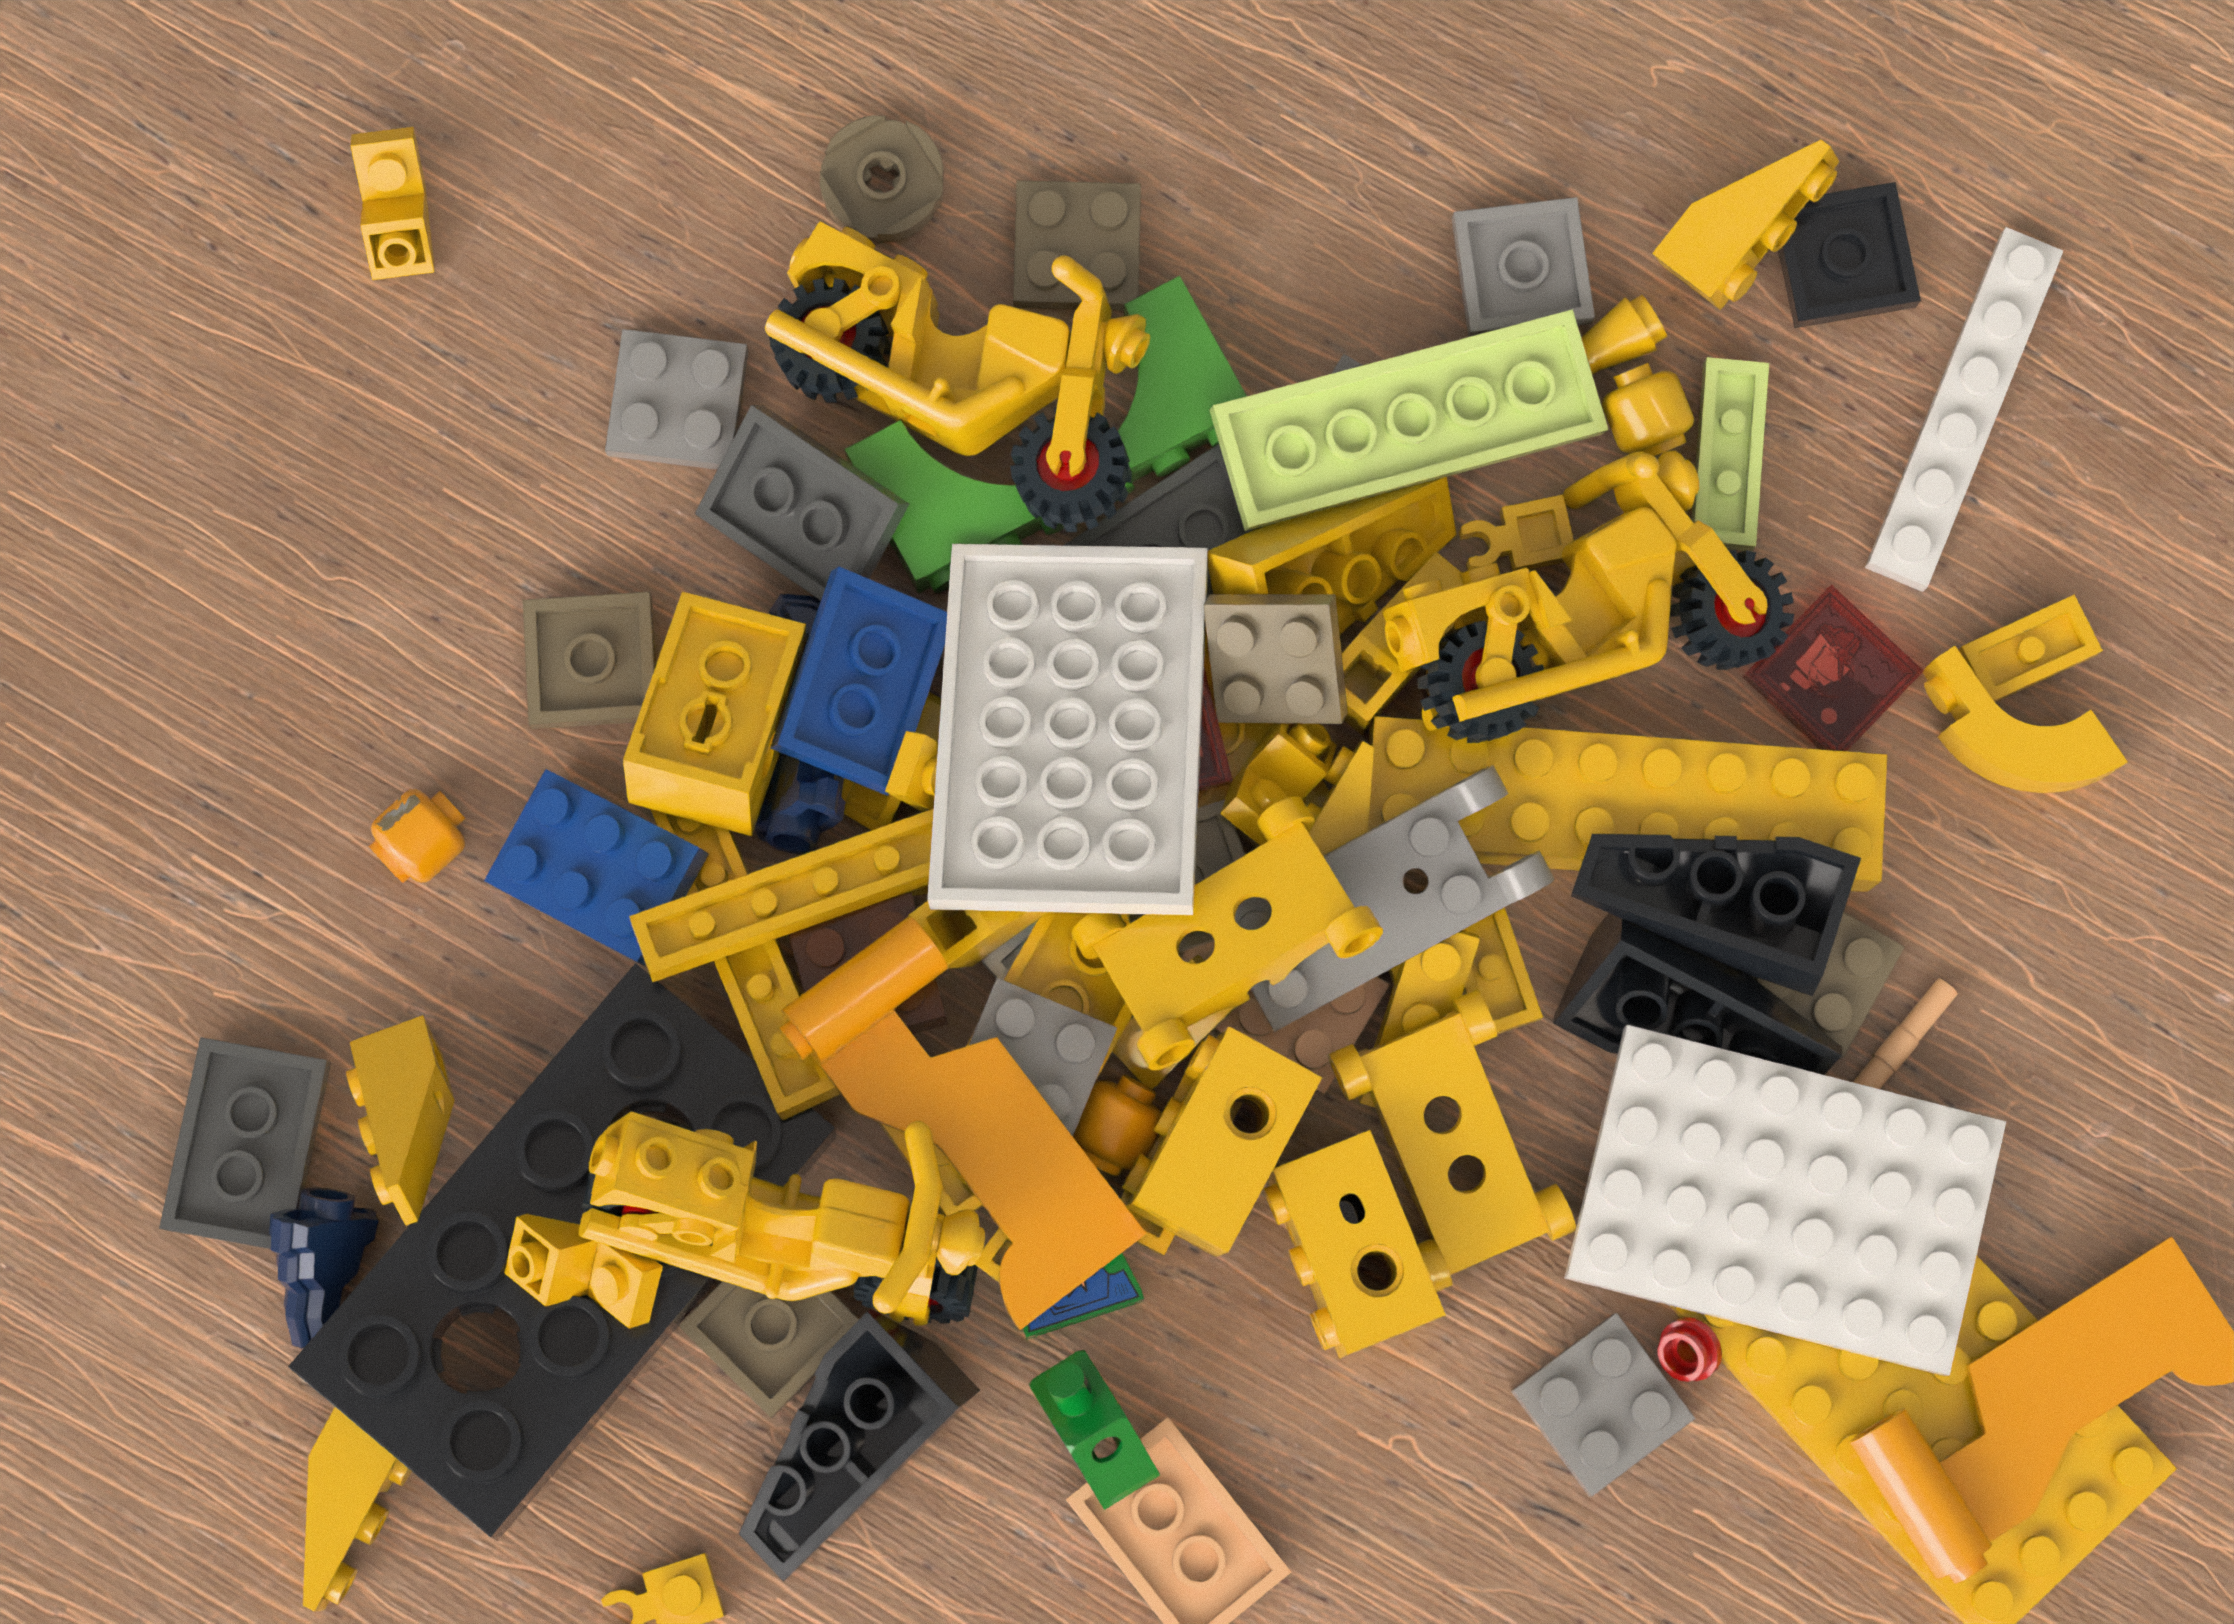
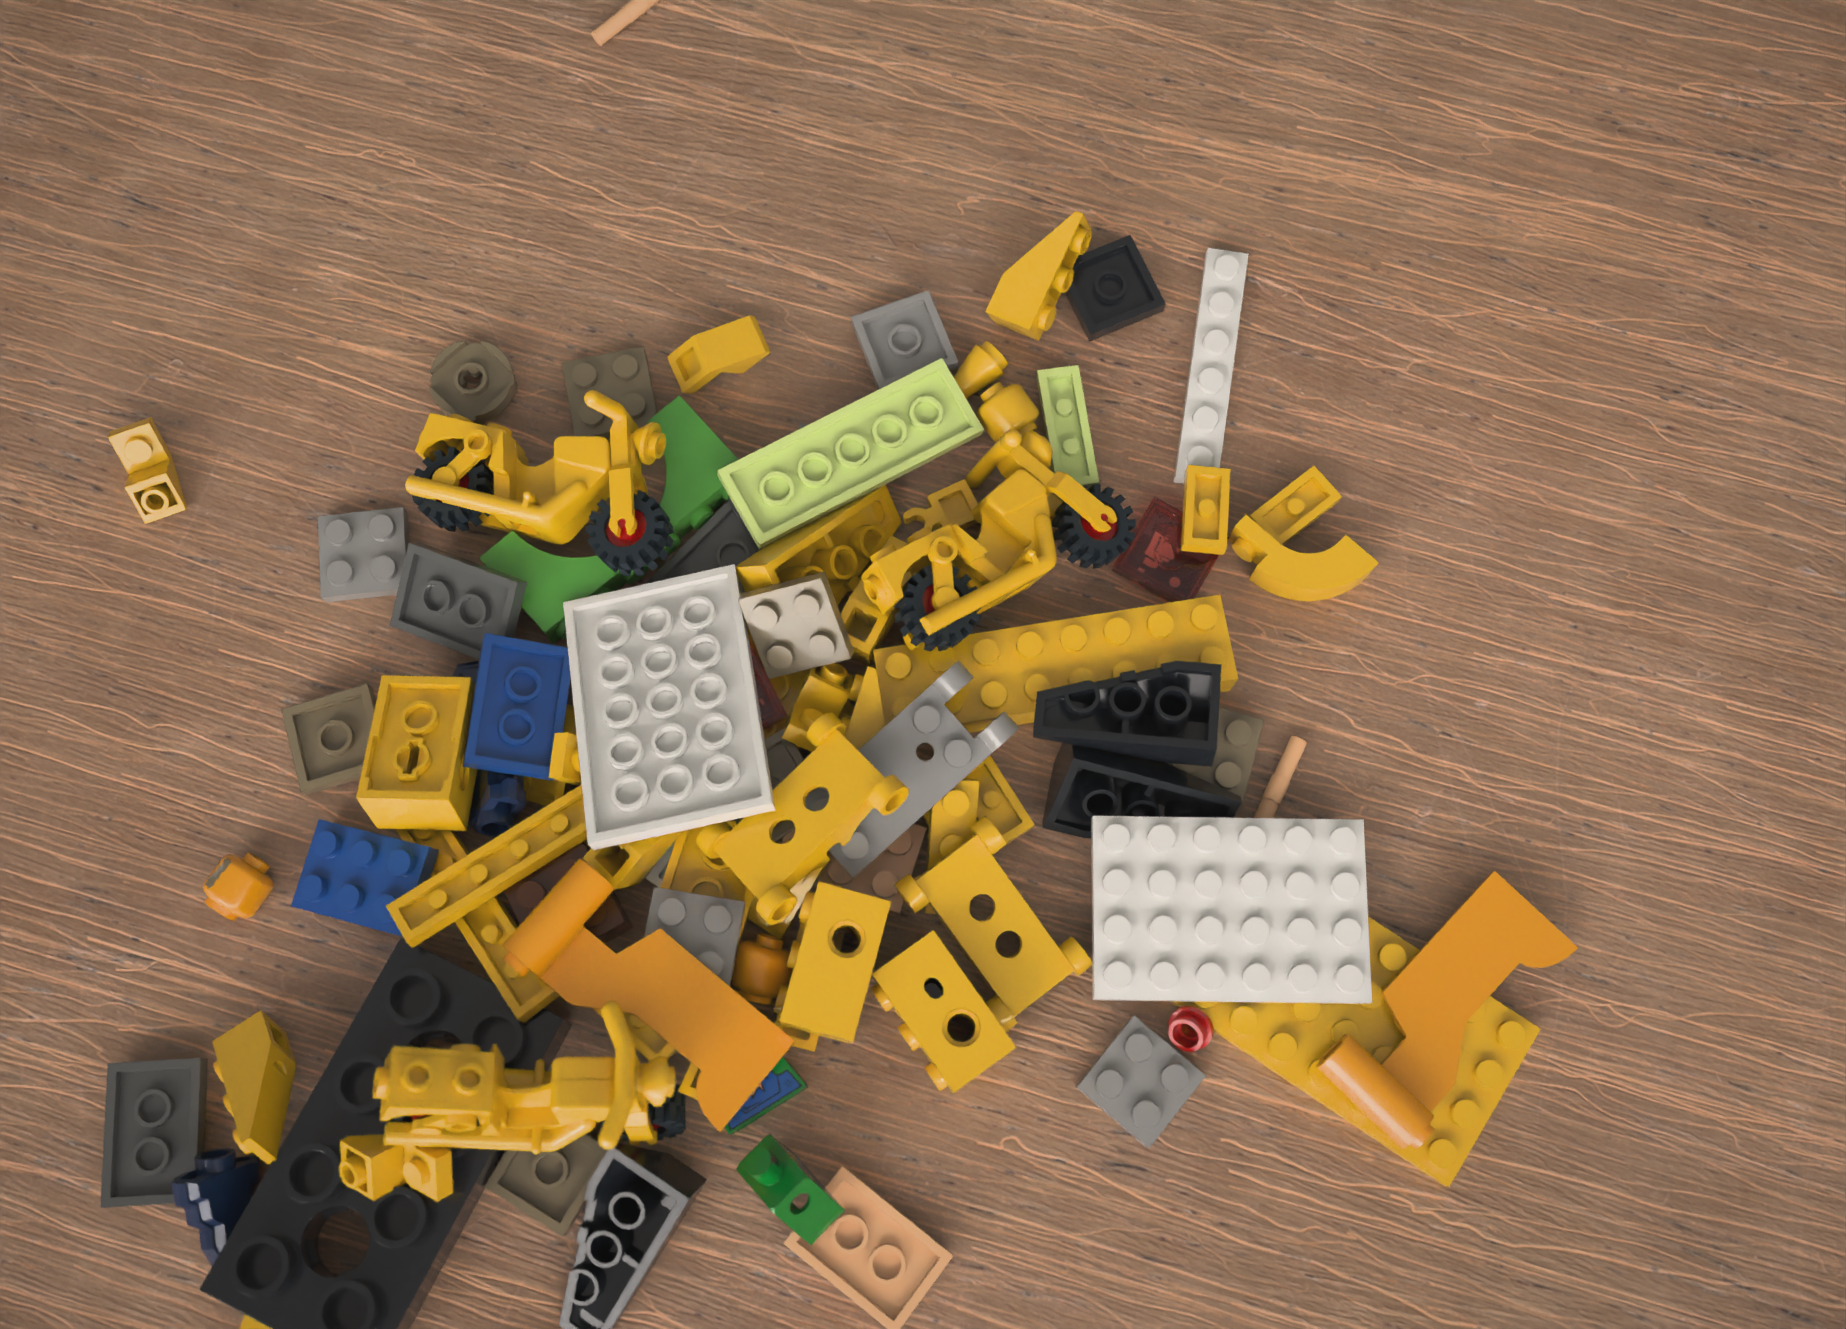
camera: 10 degrees left, 5 degrees down
(1248, 219) = (722, 349): none -> yellow slope
(1899, 624) = (1205, 509): none -> yellow plate

